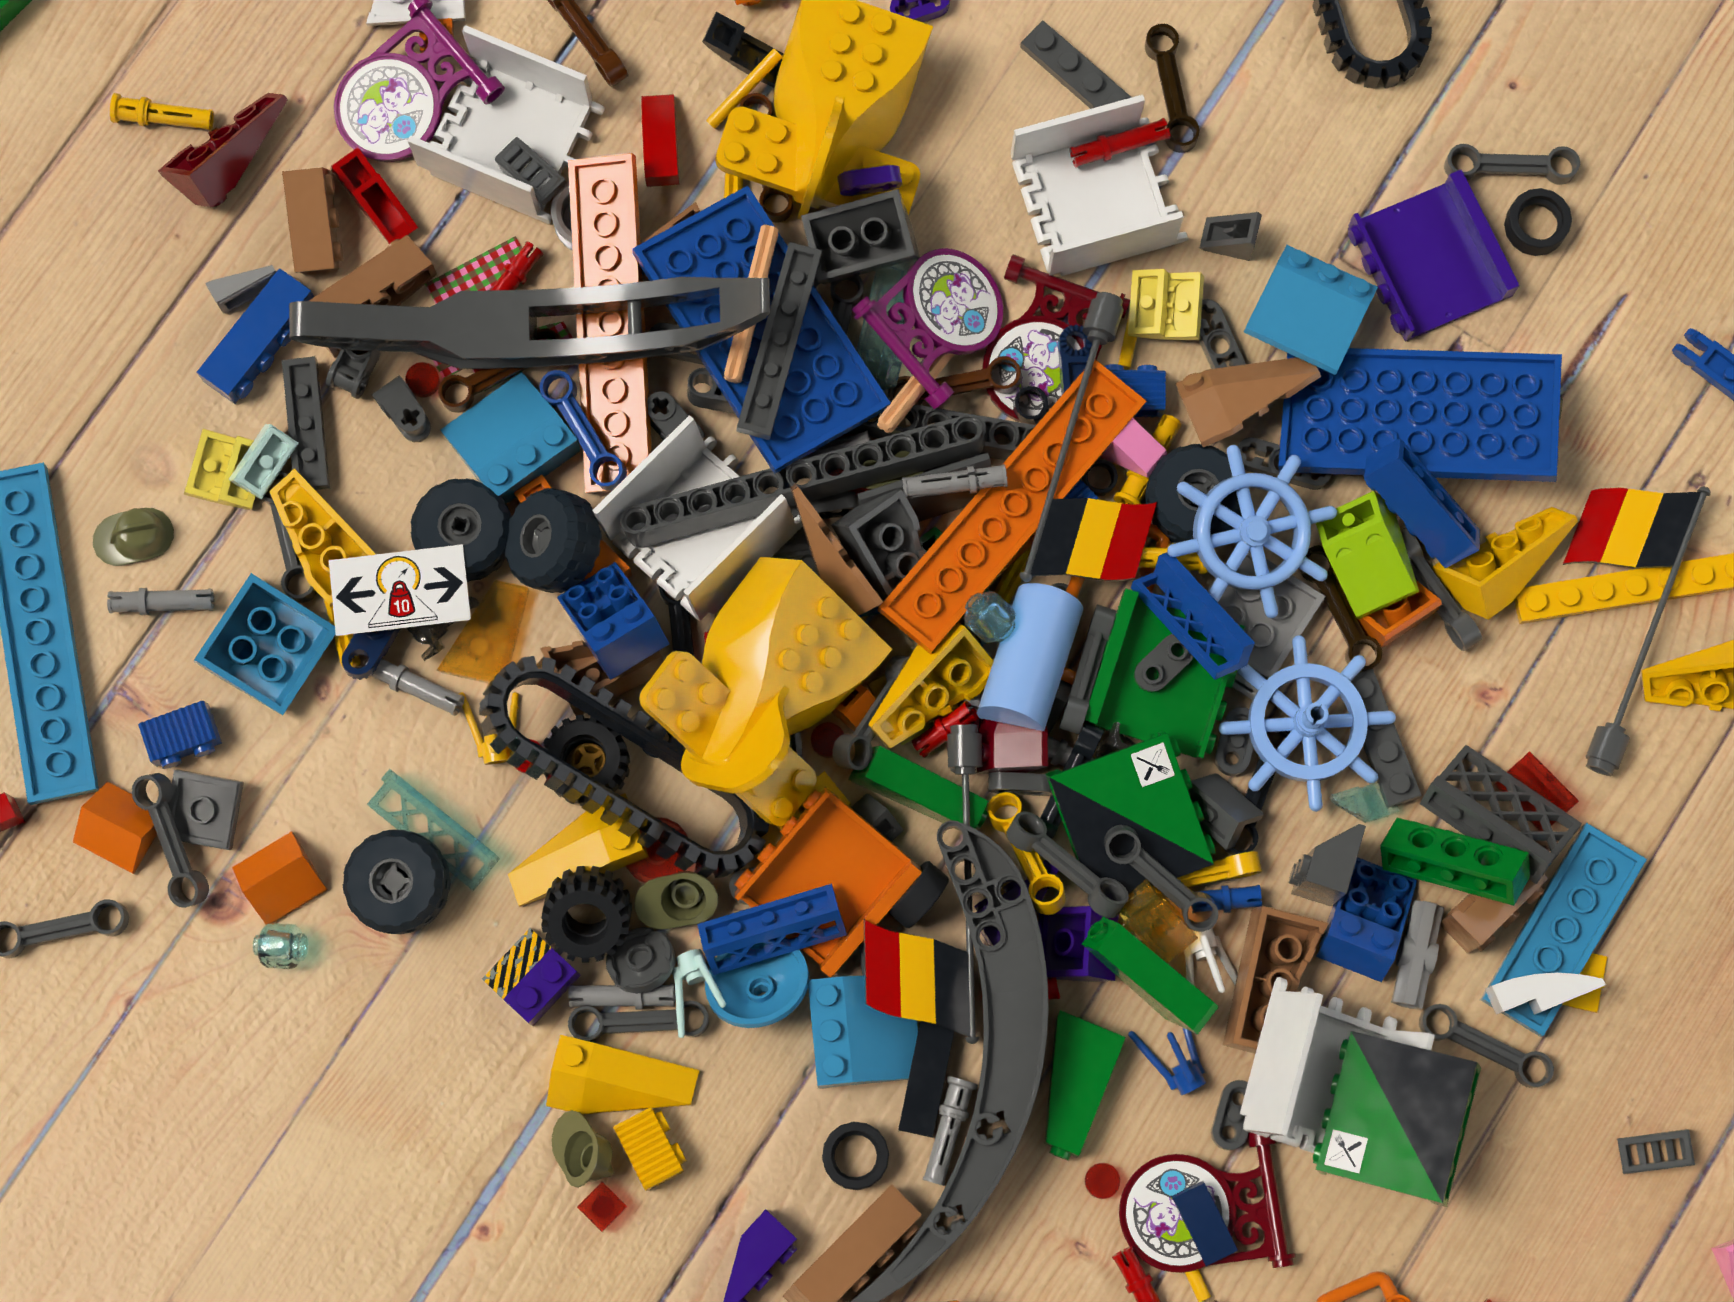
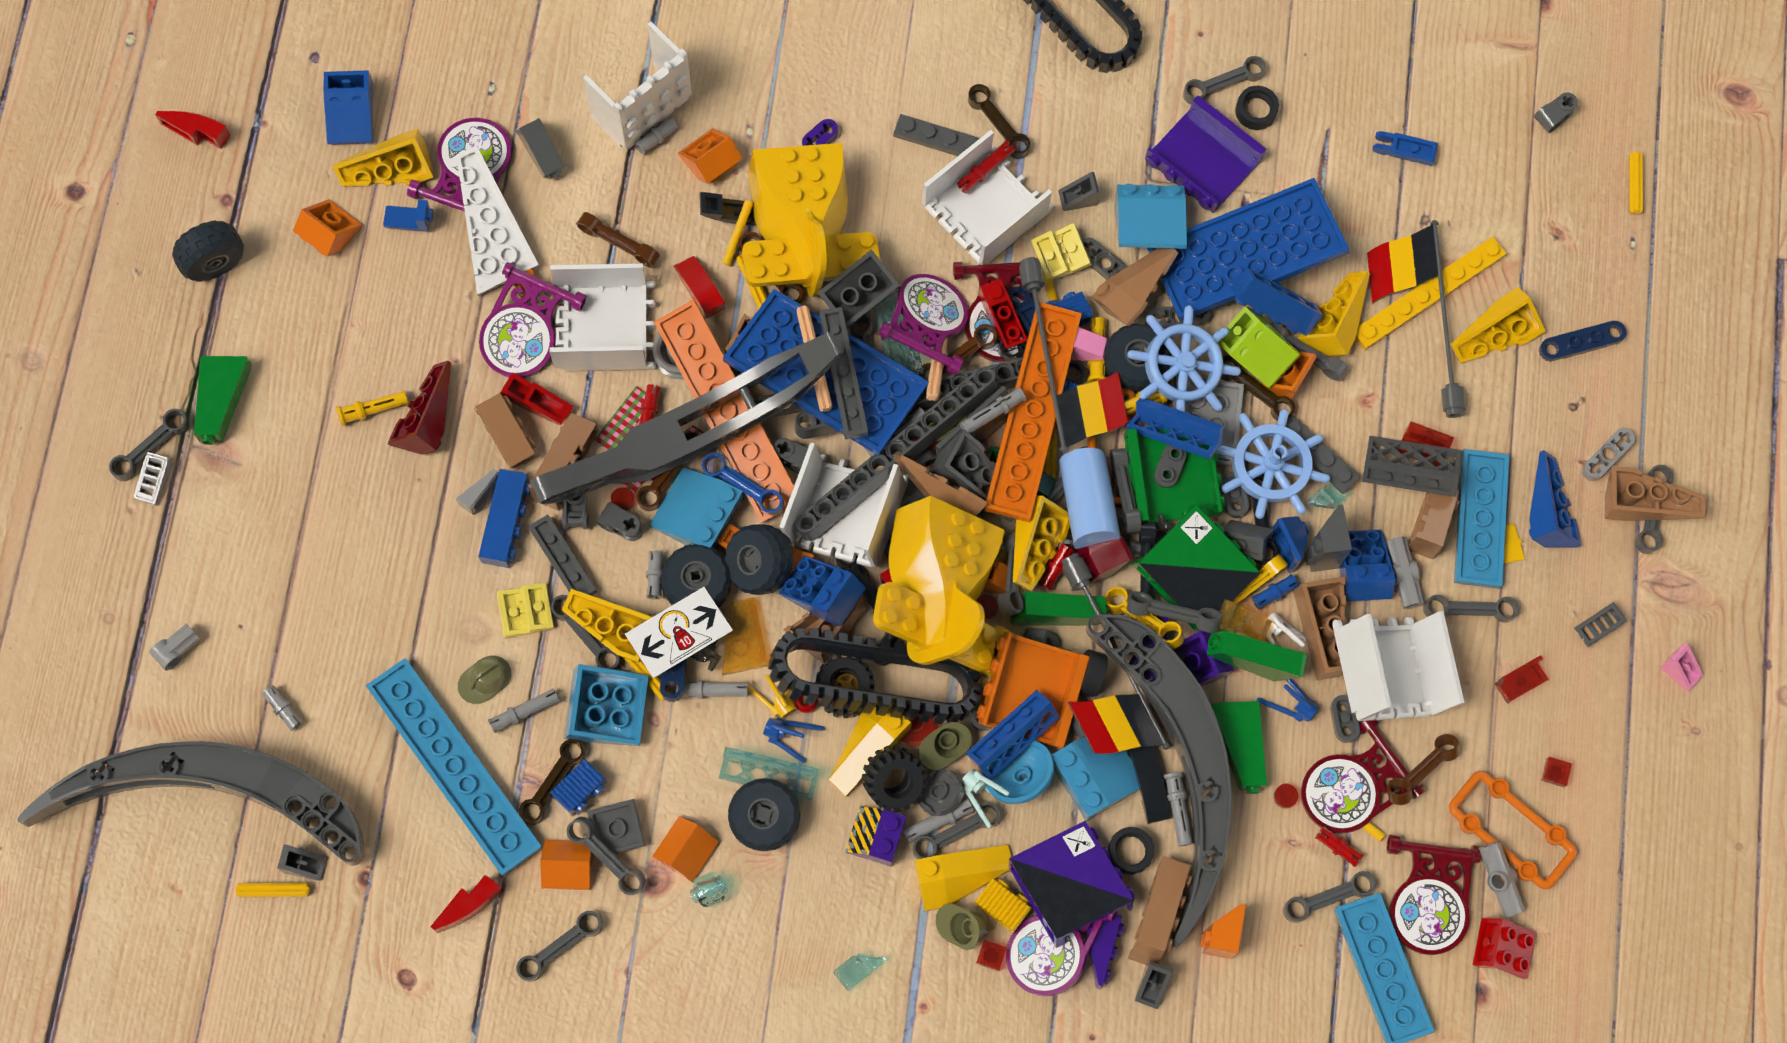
camera: 30 degrees left, 5 degrees down
(153, 708) = (551, 781): none -> dark brown piece
(263, 461) = (548, 593): light aqua slope -> none
(419, 487) = (654, 574): none -> light grey pin
(420, 1141) = (857, 969): none -> clear light blue slope
(471, 777) = (778, 727): none -> blue plant
(516, 156) = (617, 333): dark grey slope -> none
(677, 1234) = (1042, 967): none -> piece
(751, 1161) = (1070, 881): none -> panel
(869, 180) = (849, 252): dark purple beam -> none
(989, 617) = (1054, 483): clear light blue head -> none
(1019, 783) = (1117, 579): dark grey beam -> none
(1040, 354) = (1001, 313): none -> red slope
(1161, 878) = (1233, 594): dark grey piece -> none
(1204, 1223) = (1361, 790): dark blue slope -> none
(1282, 838) = (1291, 539): none -> blue slope
(1305, 1234) = (1423, 769): none -> reddish brown piece
(1397, 1117) = (1444, 670): panel -> none
(1455, 861) = (1401, 504): green brick -> none
(1506, 1177) = (1521, 680): none -> clear red panel
(1540, 990) = (1488, 559): white slope -> none
(1663, 966) = (1549, 511): none -> blue wedge

